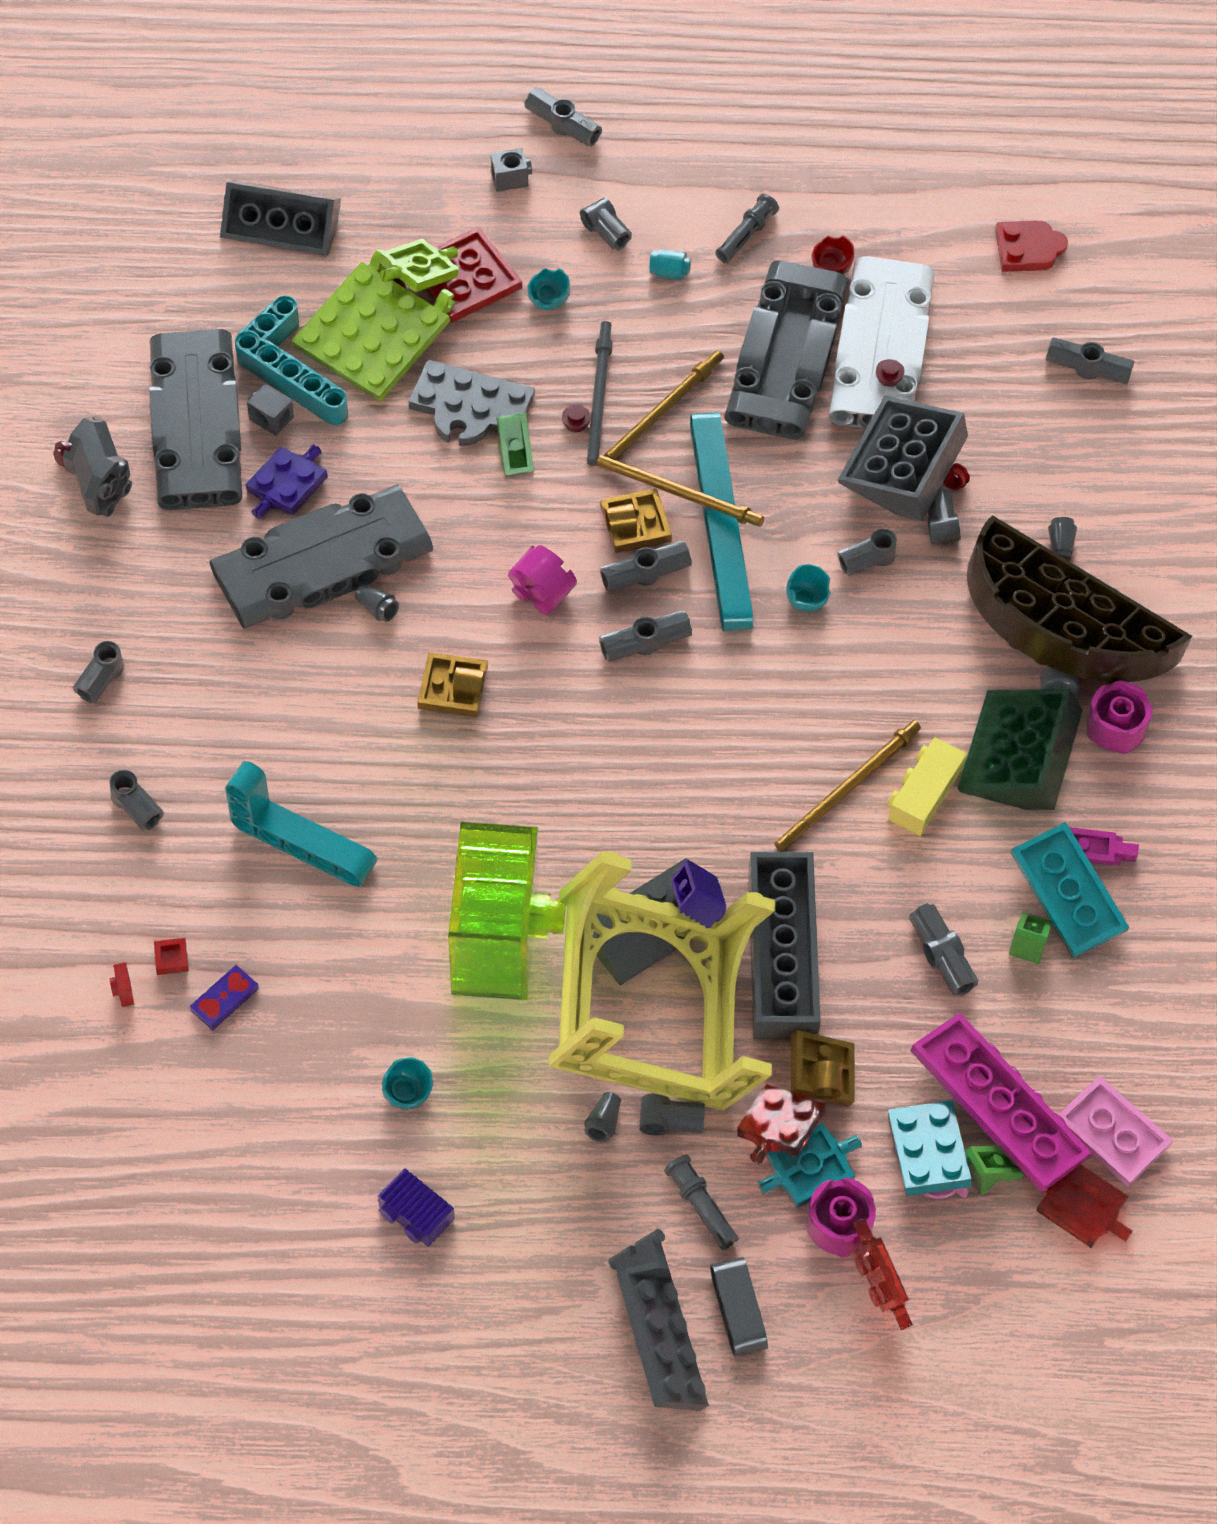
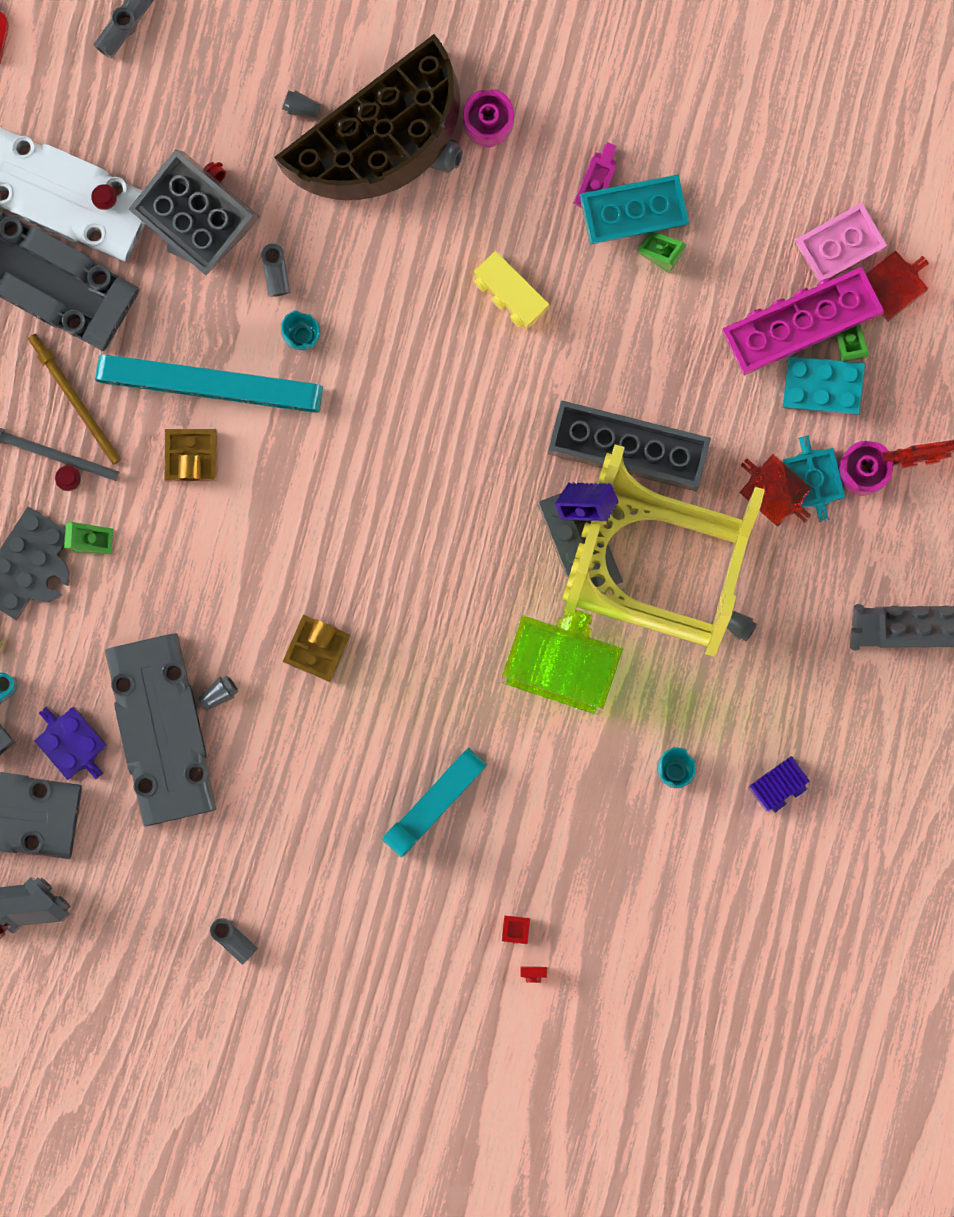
camera: 75 degrees left, 25 degrees up
(134, 801) = (368, 931): dark grey piece -> none
(224, 997) = (560, 894): dark purple tile -> none
(541, 579) = (238, 549): dark pink brick -> none
(630, 640) = (309, 461): dark grey piece -> none
(631, 570) = (240, 443): dark grey piece -> none
(662, 1115) = (750, 570): dark grey piece -> none
(694, 1189) = (813, 571): dark grey pin -> none
(739, 1306) = (914, 563): dark grey beam -> none
(742, 513) = (223, 364): pearl gold bar -> none
(822, 1068) = (740, 446): pearl gold plate -> none
(901, 737) = (457, 297): pearl gold bar -> none
(942, 521) = (260, 199): dark grey piece -> none
(943, 949) = (658, 323): dark grey piece -> none
(1022, 747) = (493, 204): clear green slope -> none

